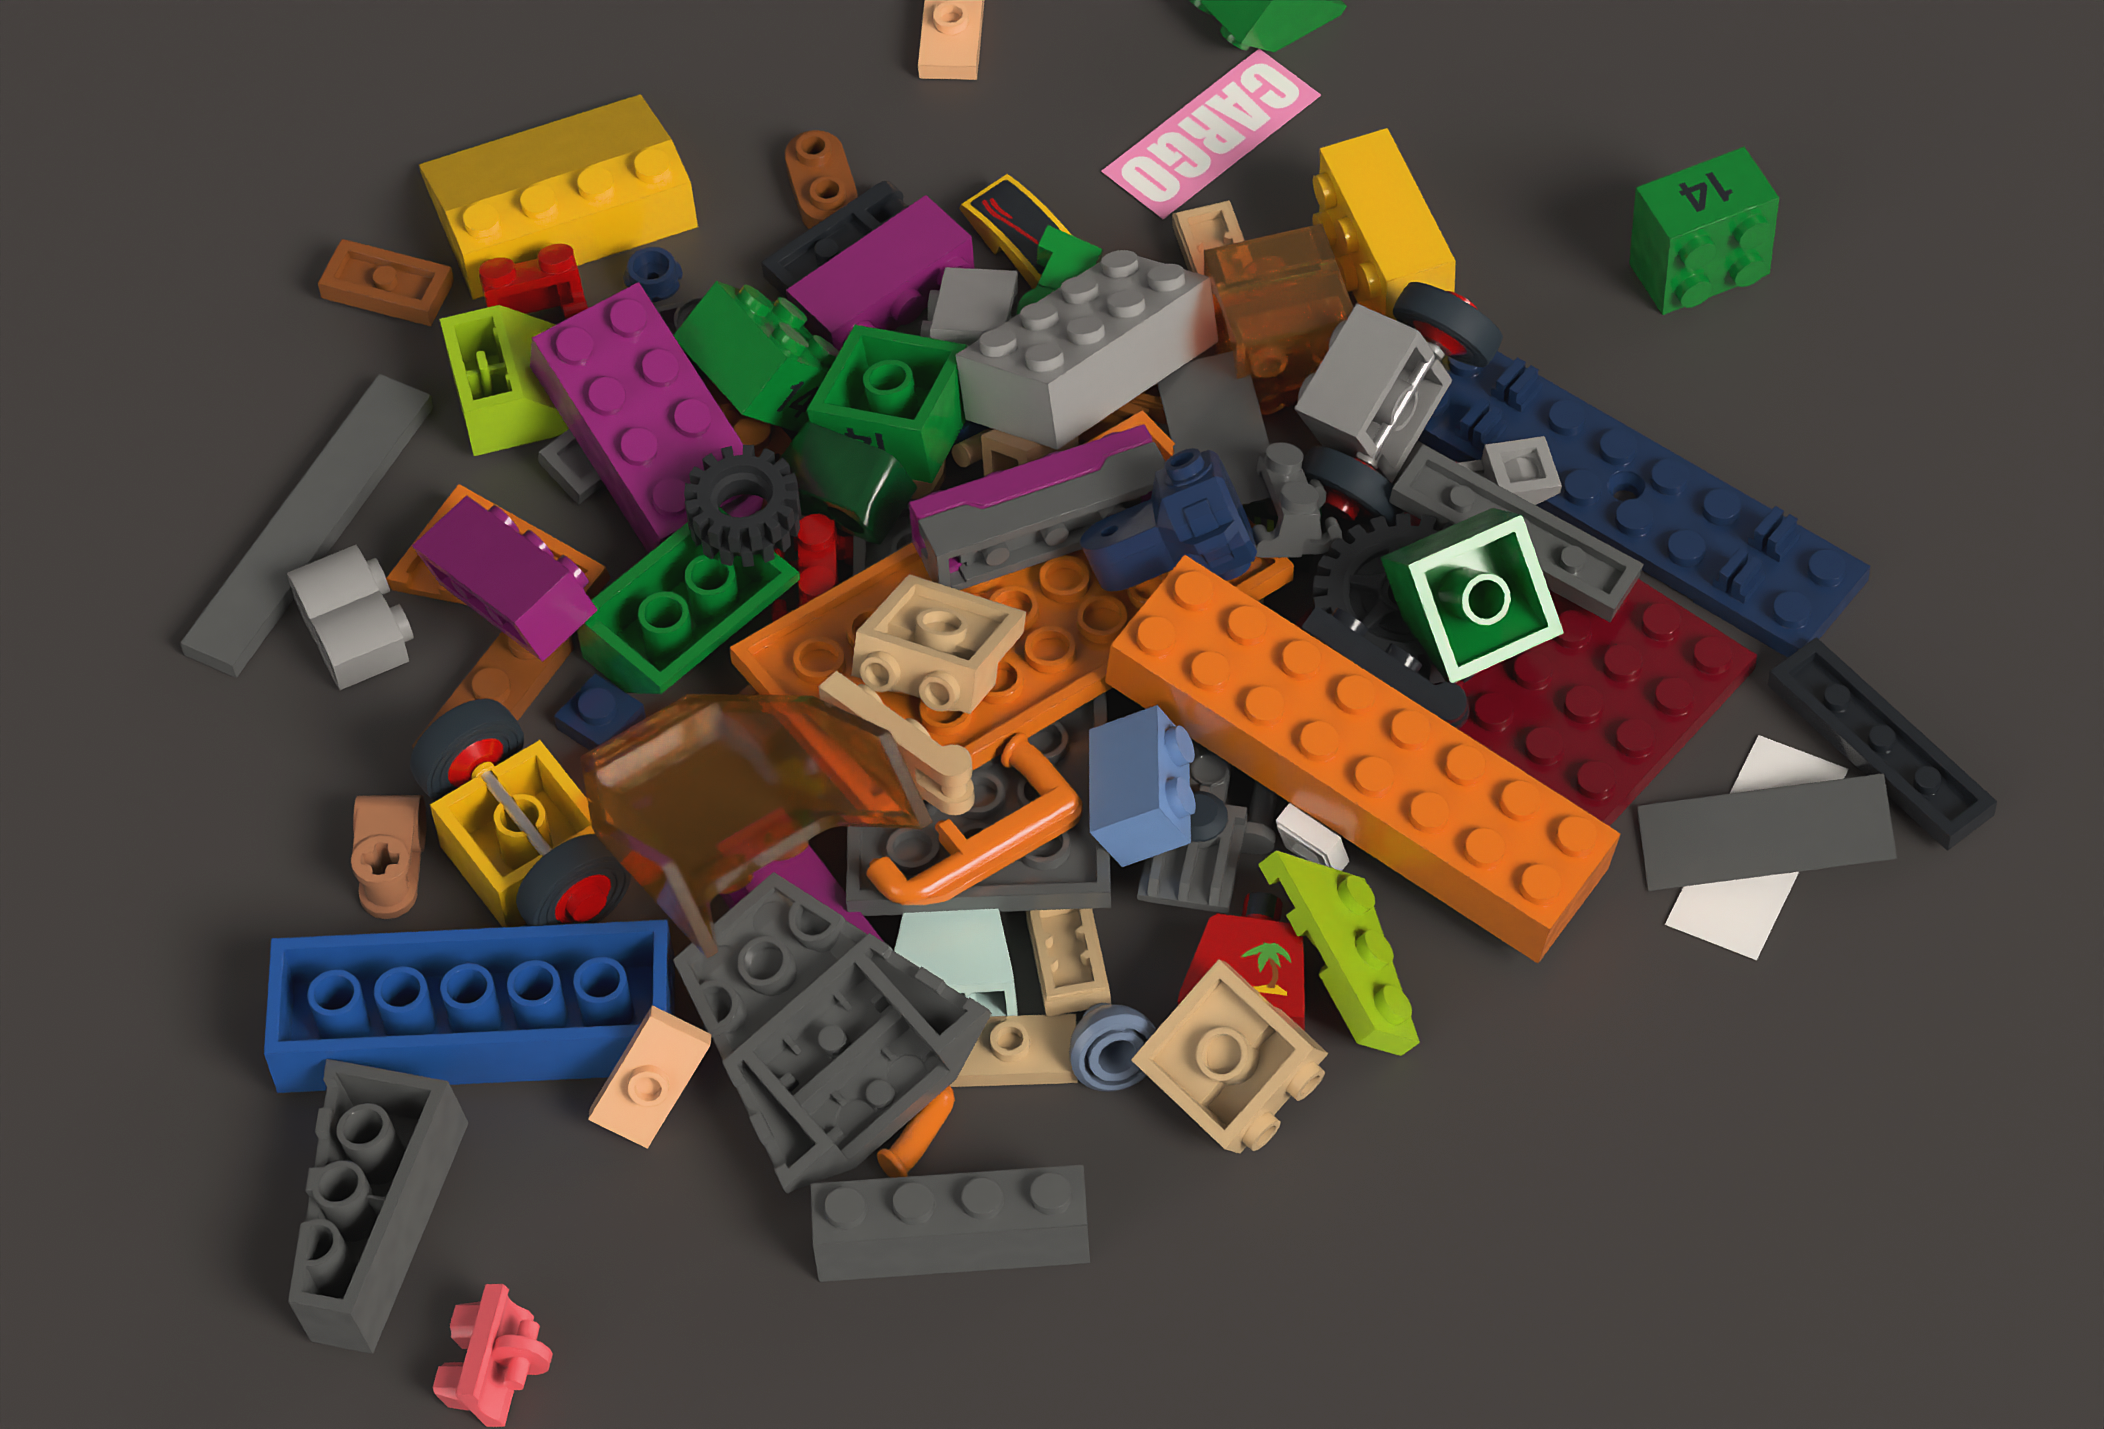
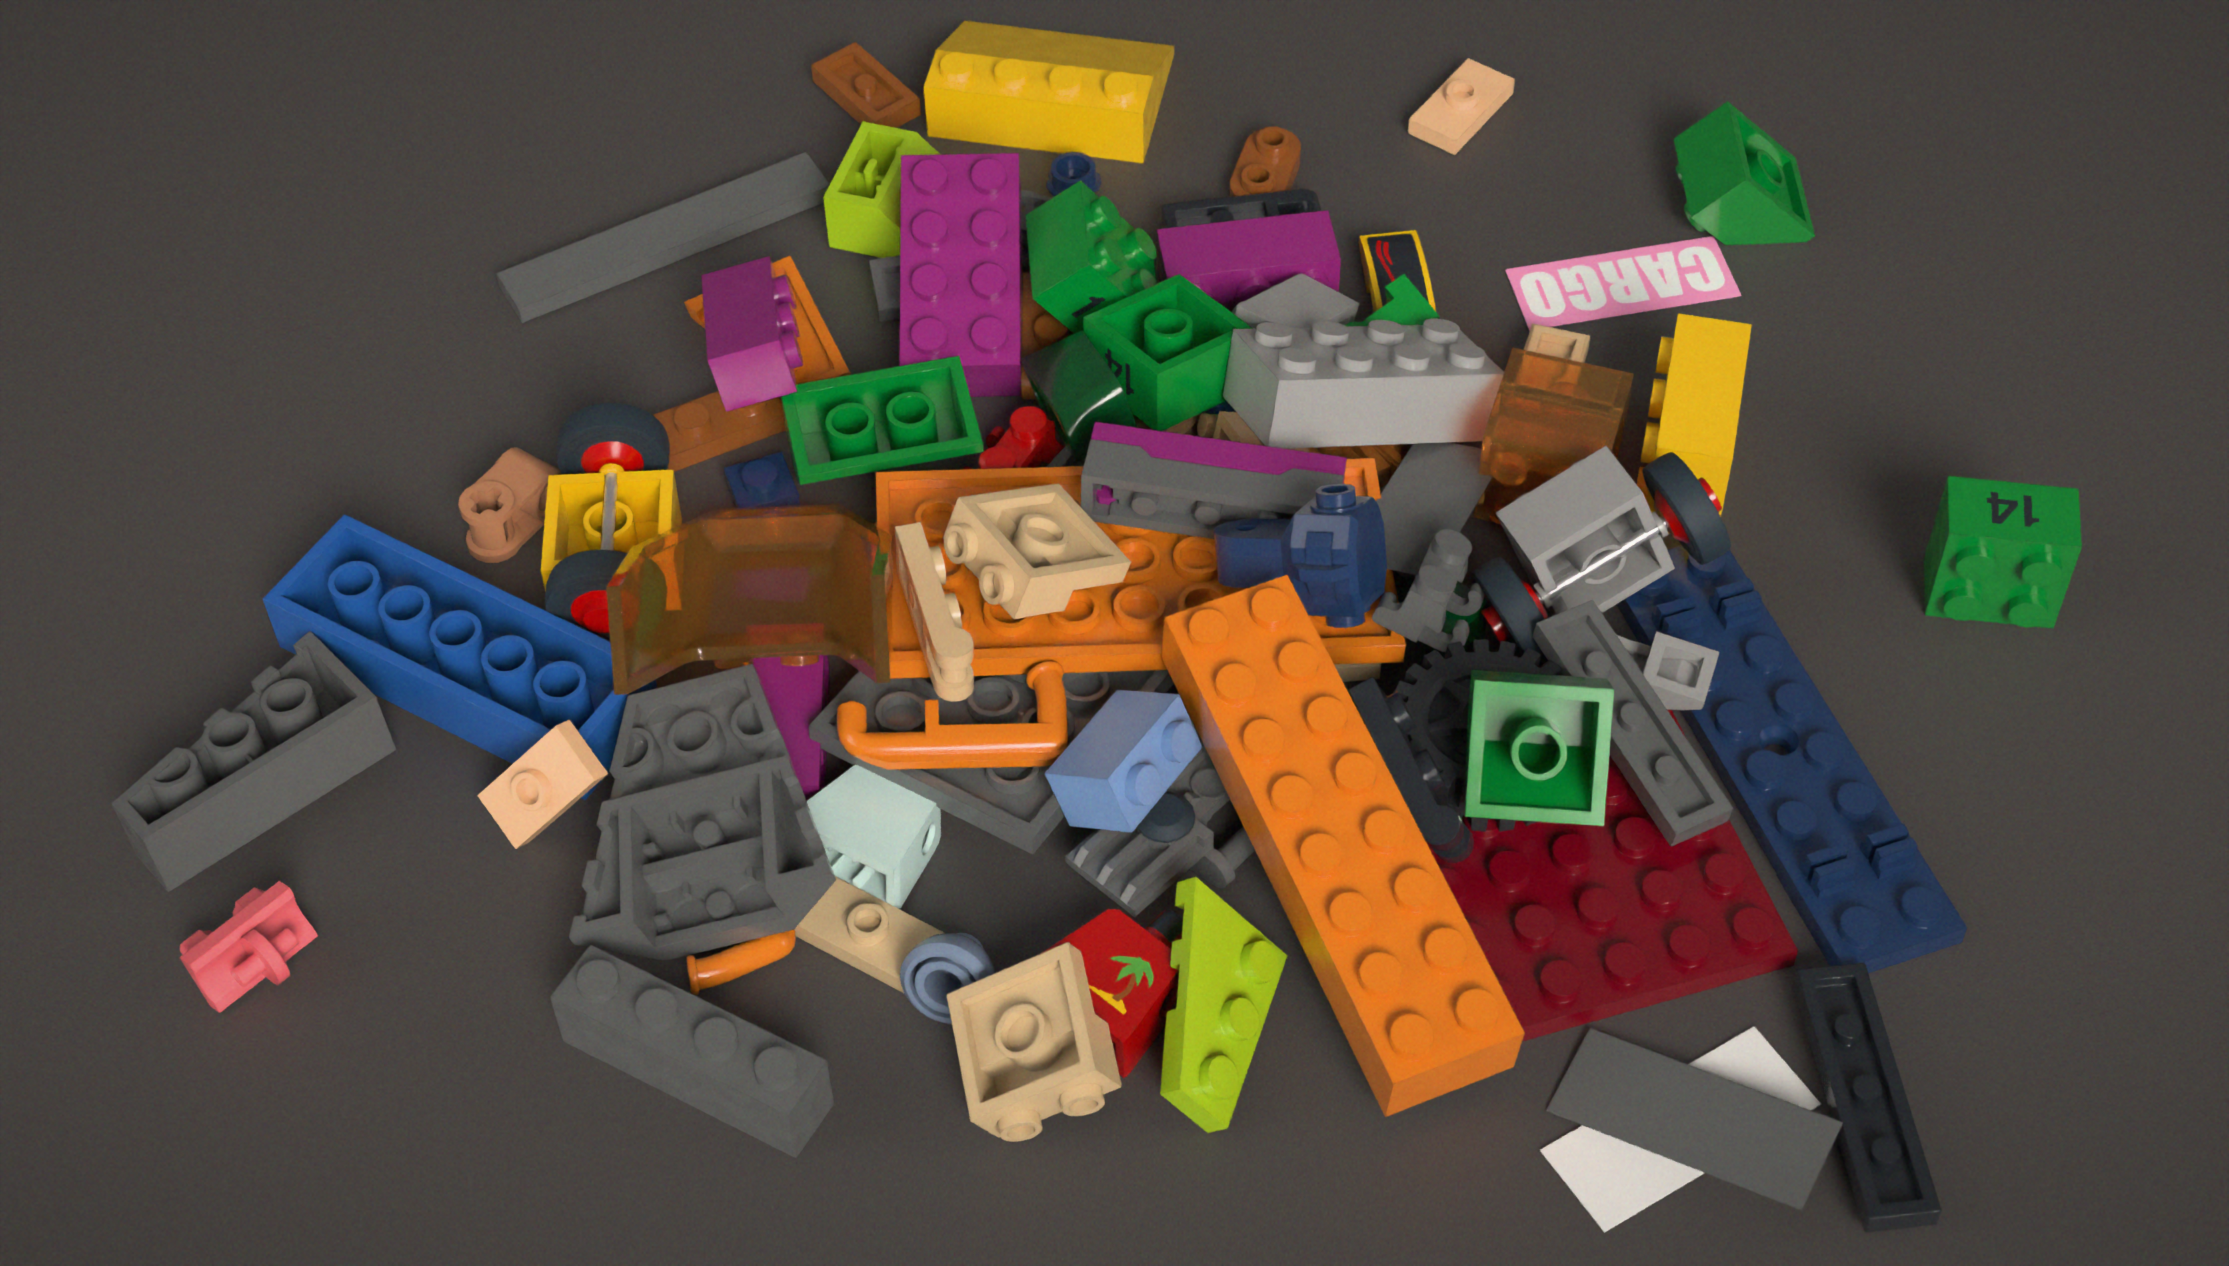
camera: 30 degrees right, 5 degrees down
(350, 616) = (632, 315): light grey brick -> none
(535, 283) = (962, 133): red piece -> none
(736, 477) = (976, 390): black tyre -> none
(1068, 960) = (972, 883): tan plate -> none
(1311, 839) = (1259, 895): white tile -> none

